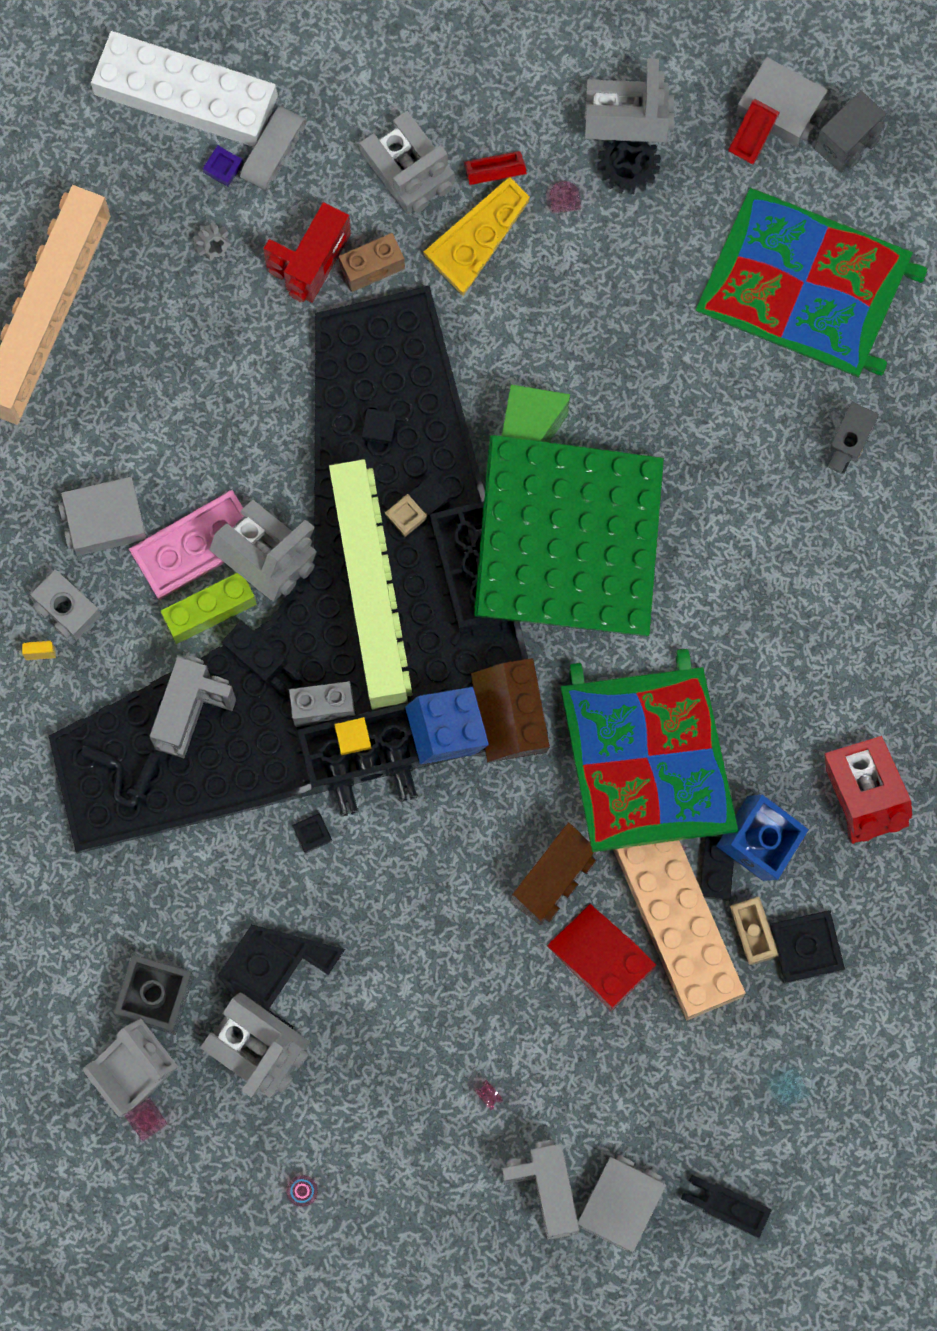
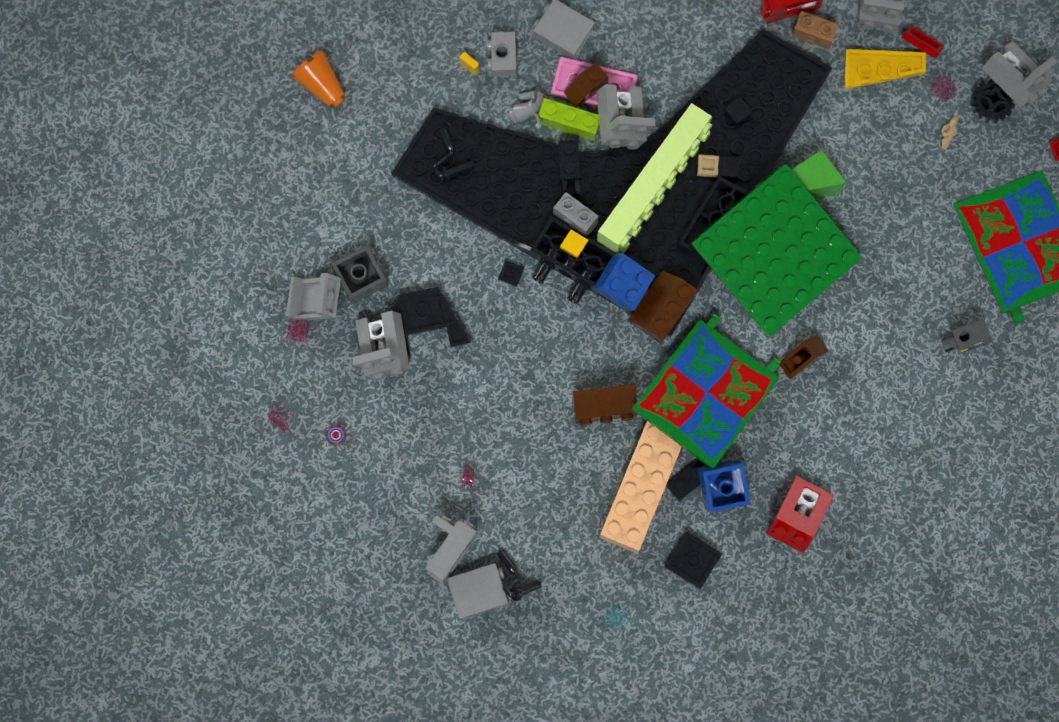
camera: 45 degrees right, 0 degrees up
(150, 646) = (523, 111): none -> light grey piece
(182, 702) = (508, 151): light grey brick -> none
(191, 553) = (586, 85): none -> reddish brown slope
(227, 1238) = (278, 421): none -> clear pink tile
(601, 957) = (588, 467): red slope -> none
(616, 237) = (949, 131): none -> tan piece
(662, 1166) = (515, 592): none -> black piece
(705, 621) = (803, 356): none -> reddish brown slope
(730, 1207) = (529, 646): black hinge -> none
(754, 931) = (675, 527): tan brick -> none

